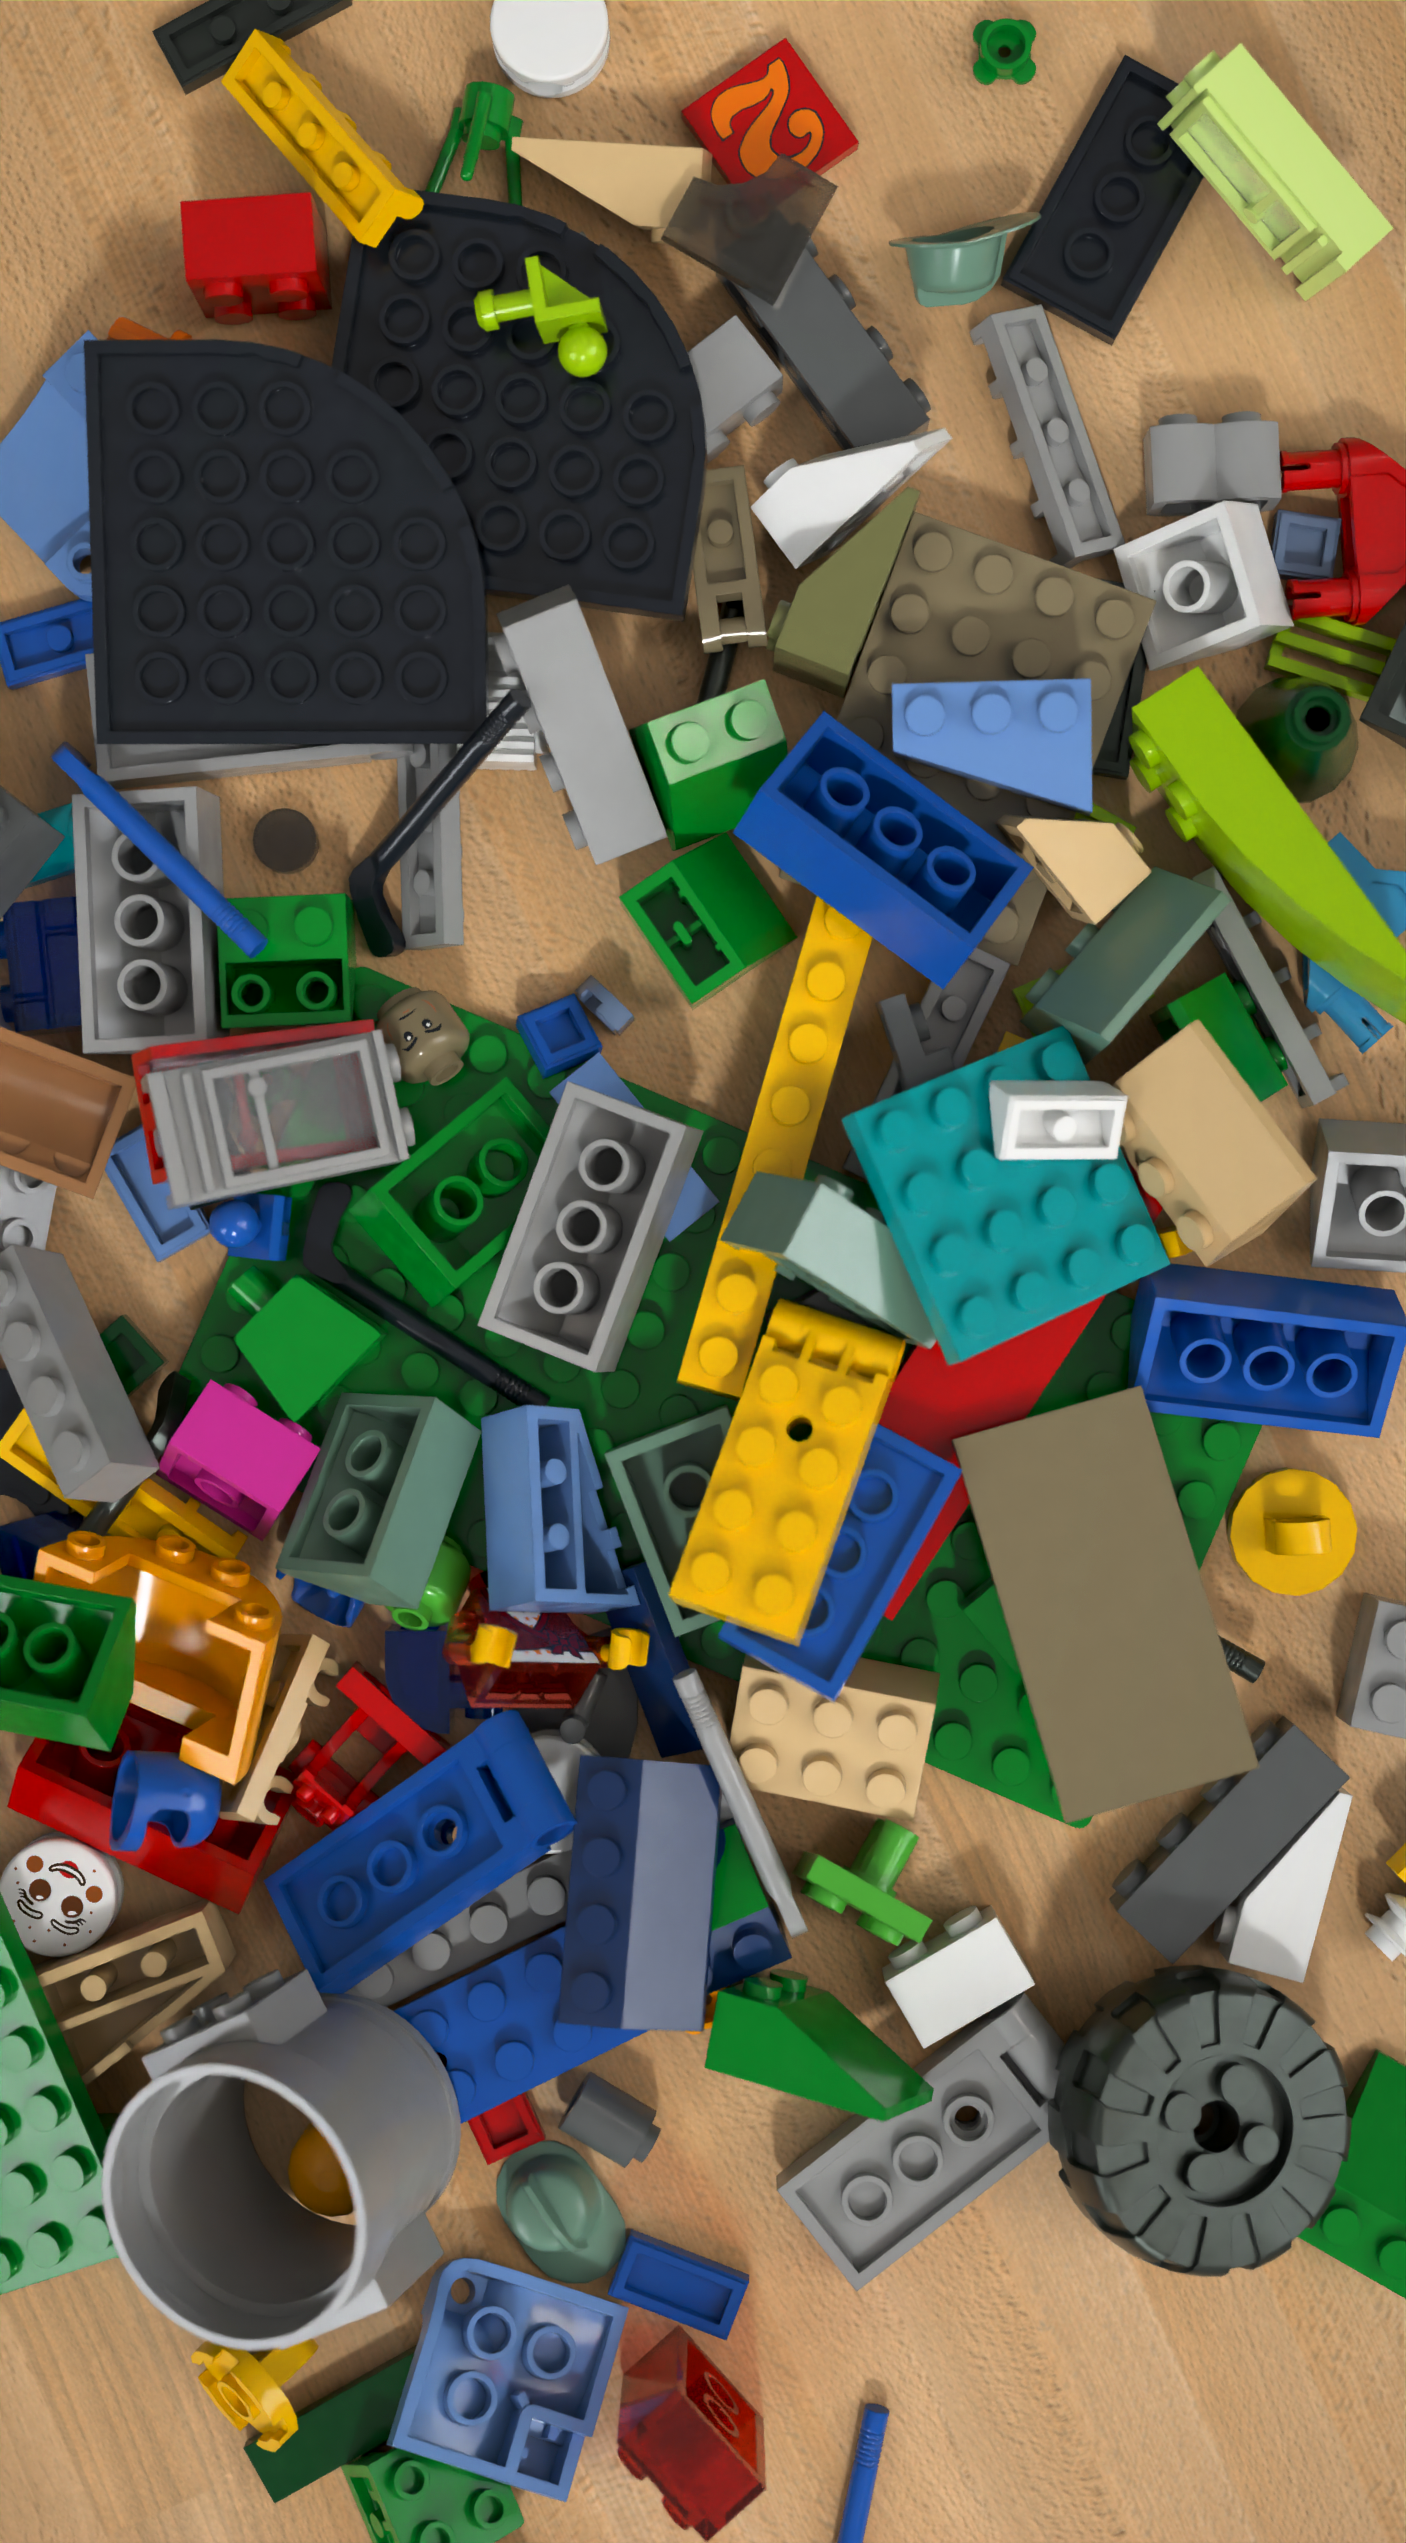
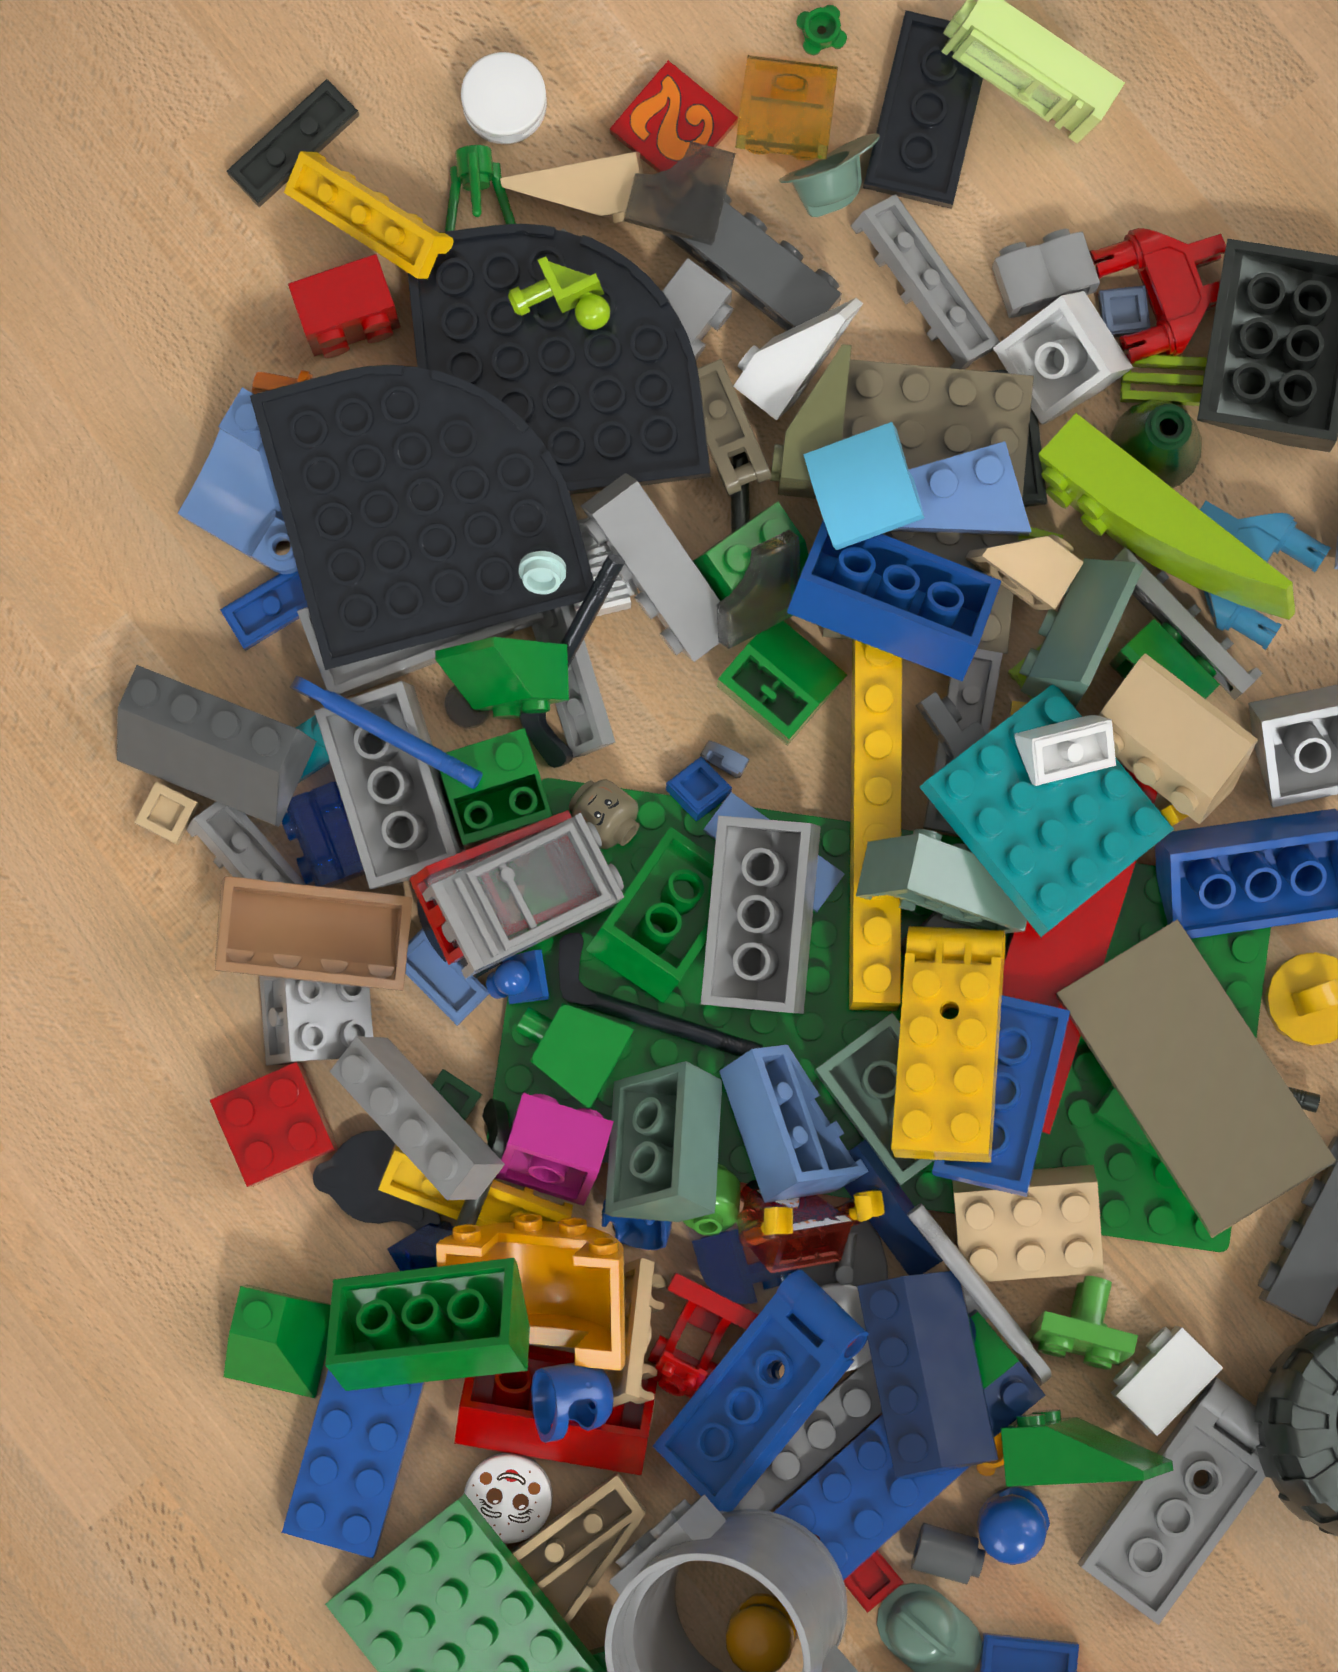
camera: 20 degrees left, 5 degrees down
(341, 816) = (508, 674): none -> green slope
(417, 689) = (542, 571): none -> light aqua plate
(702, 2113) = (1013, 1526): none -> blue helmet
(710, 797) = (764, 591): none -> clear smoke tile
(881, 688) = (863, 486): none -> medium azure slope
(926, 146) = (786, 108): none -> clear yellow slope

